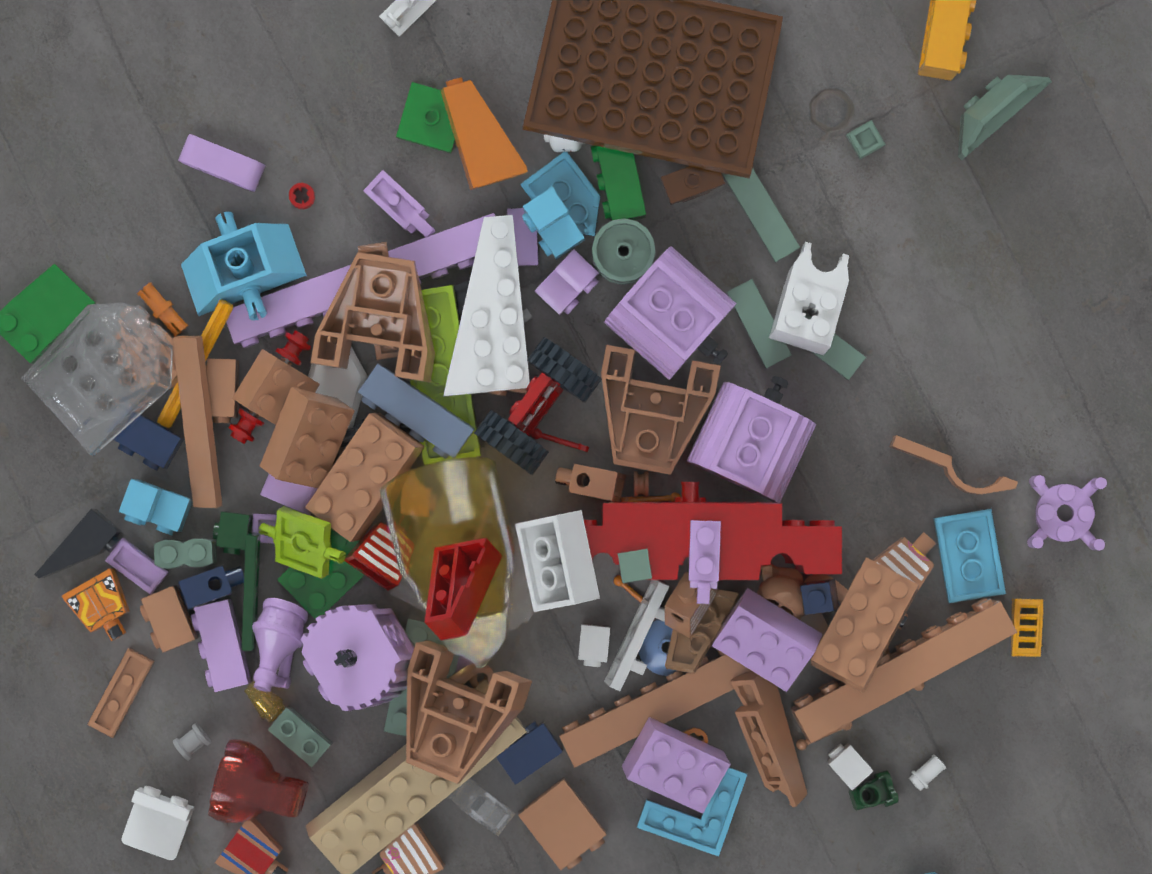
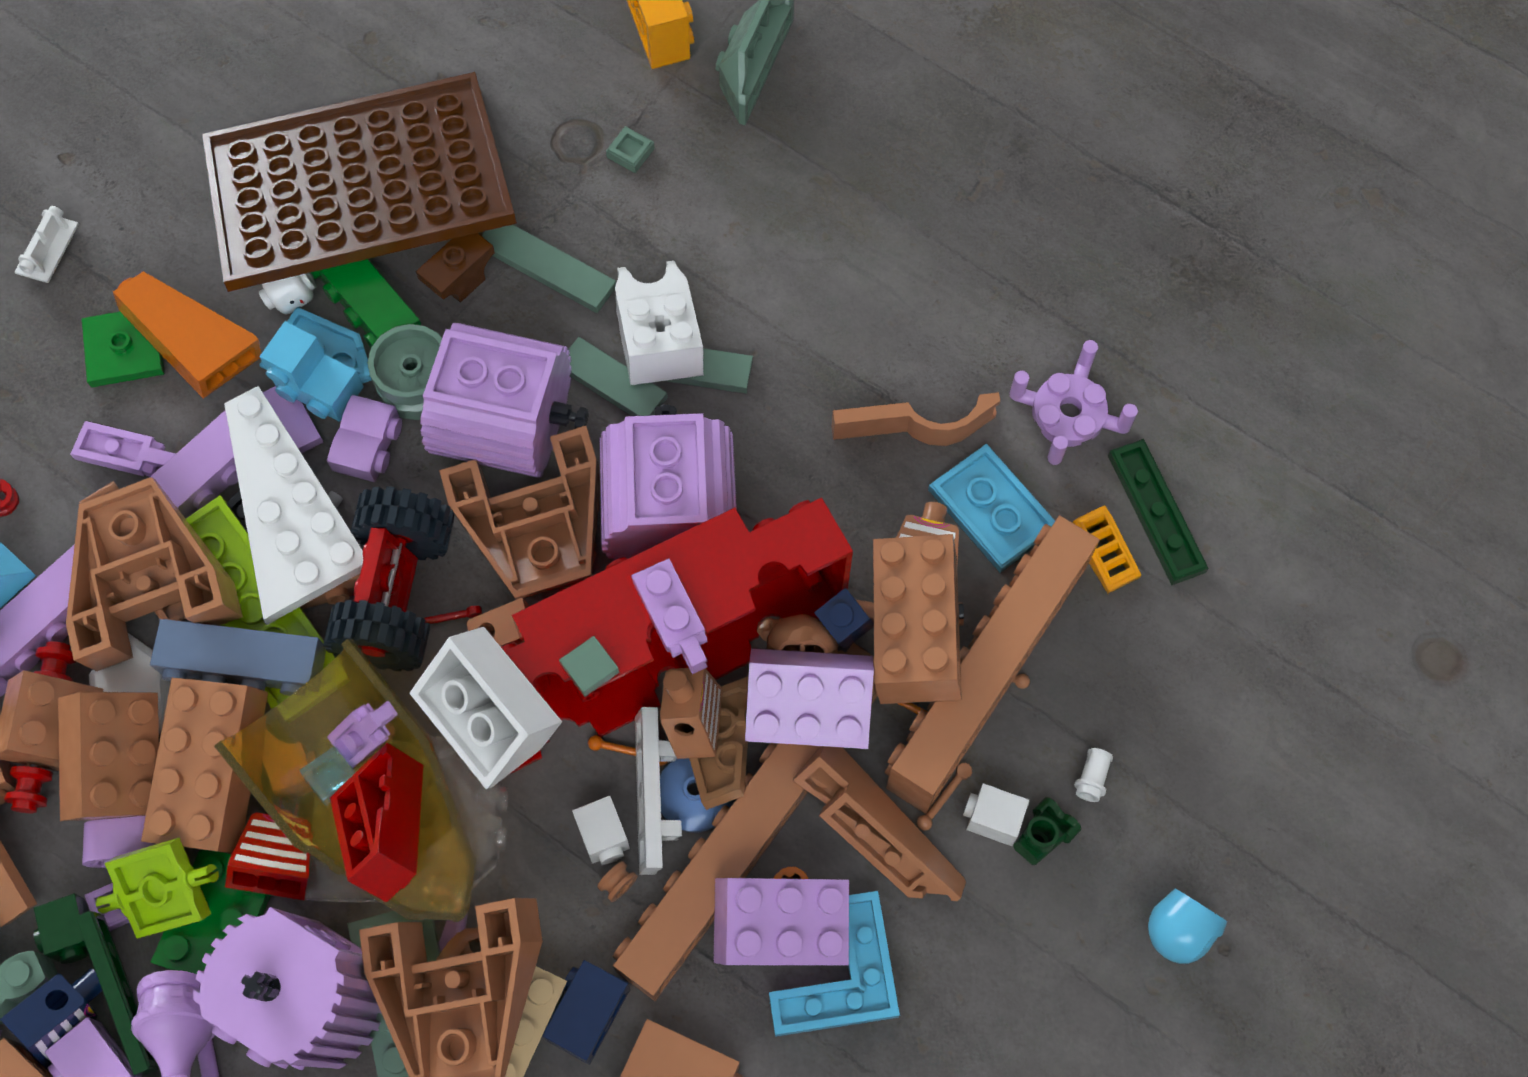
camera: 30 degrees left, 20 degrees down
(440, 531) = (327, 774): none -> clear light blue plate
(473, 521) = (362, 732): none -> lavender hinge
(588, 681) = (617, 881): none -> nougat bush
(1079, 617) = (1157, 512): none -> dark green tile

